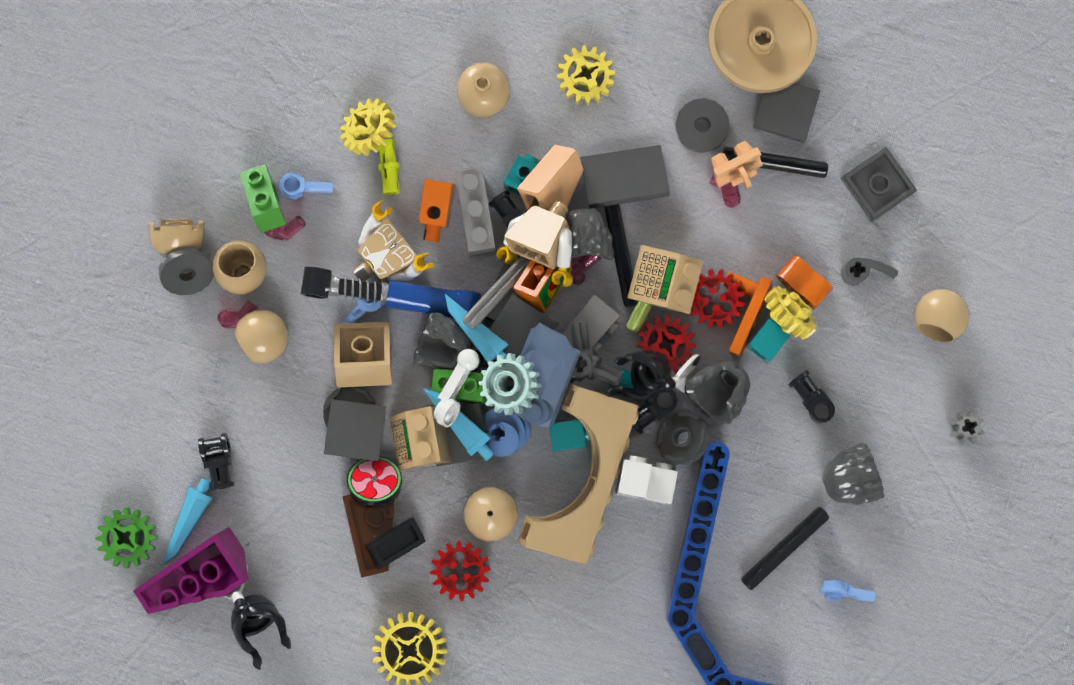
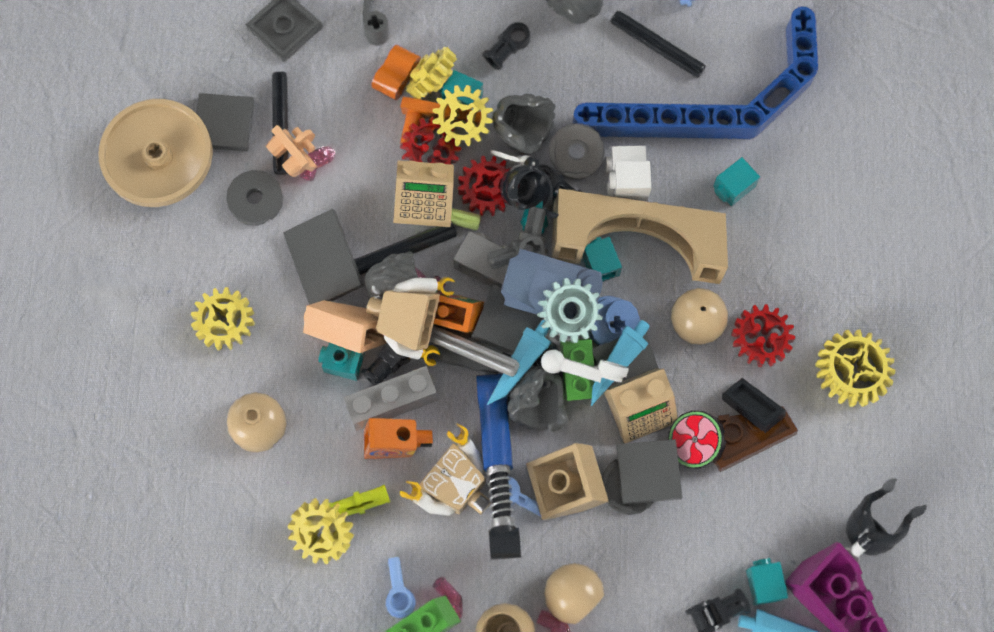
camera: 105 degrees left, 10 degrees down
(232, 511) = (766, 582): none -> teal brick
(619, 585) = (735, 182): none -> teal brick
(746, 332) = (455, 104): none -> light yellow gear

